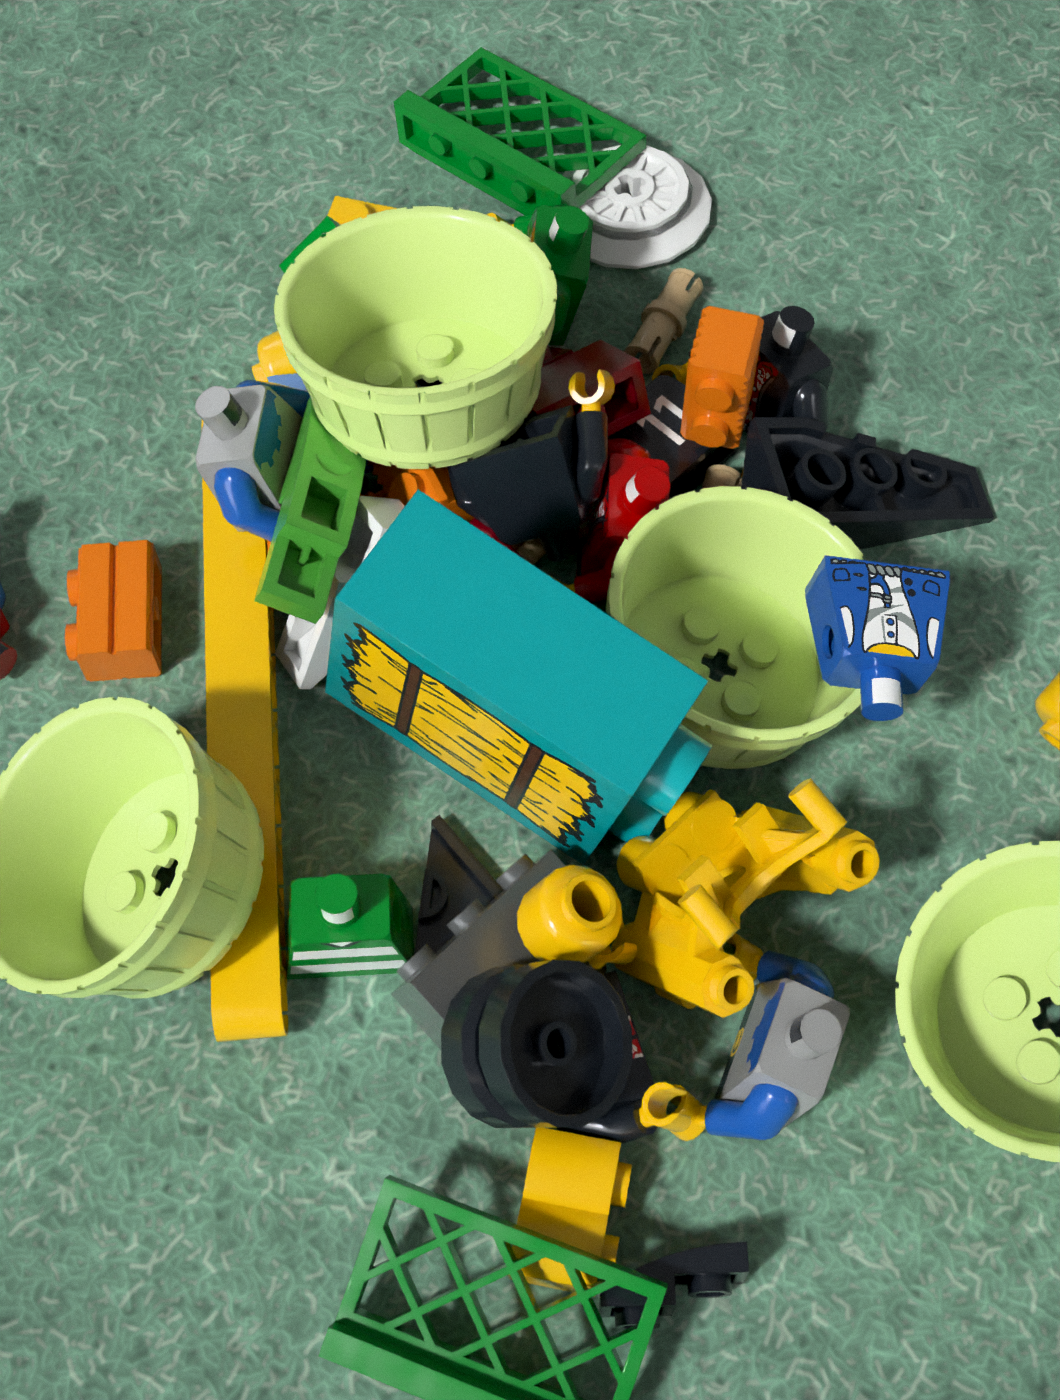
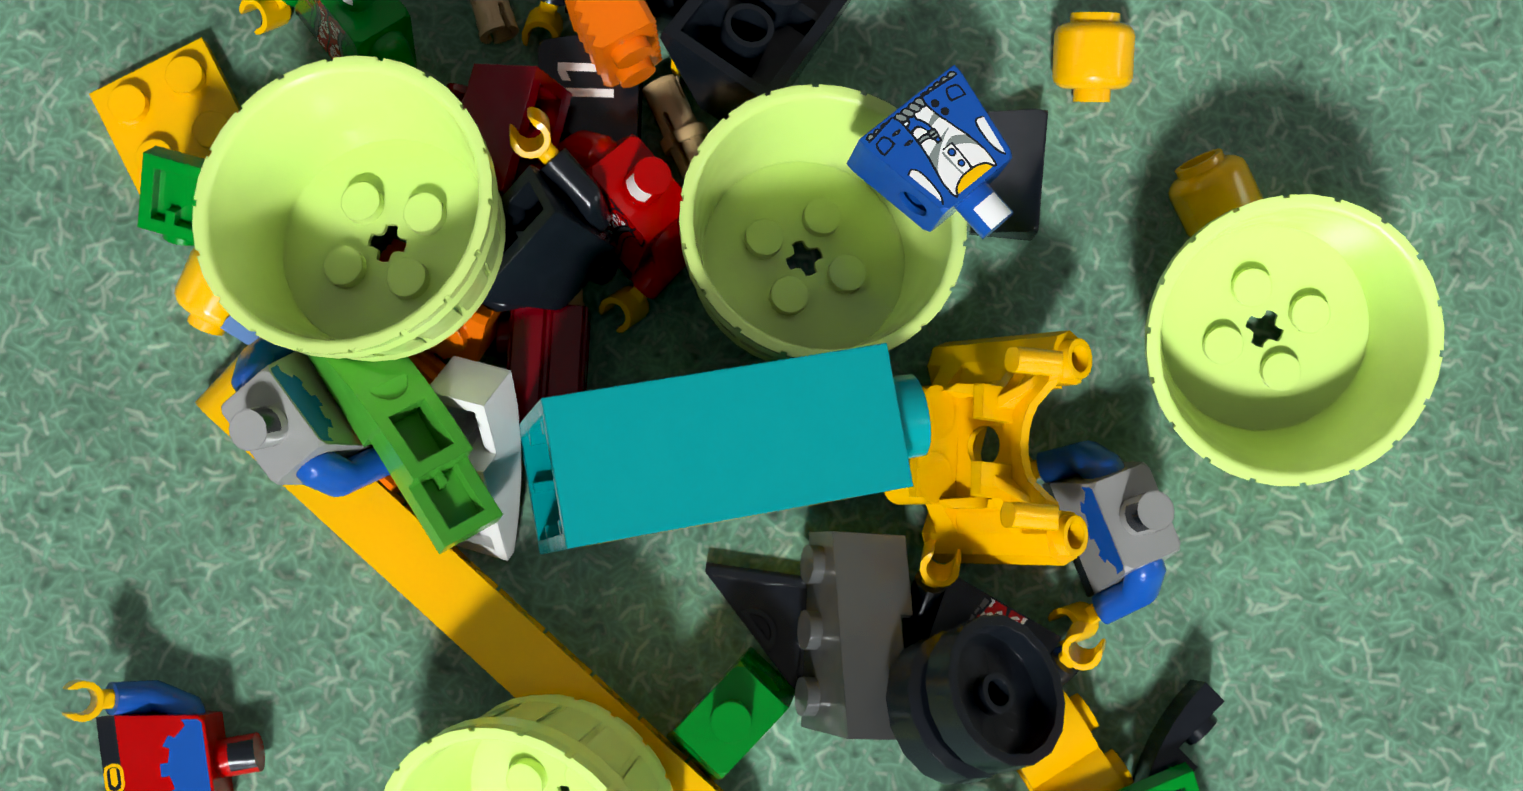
camera: 50 degrees left, 20 degrees up
(116, 611) = (300, 629): orange brick -> none
(569, 915) = (907, 582): yellow head -> none
(938, 741) = (1022, 178): none -> black slope

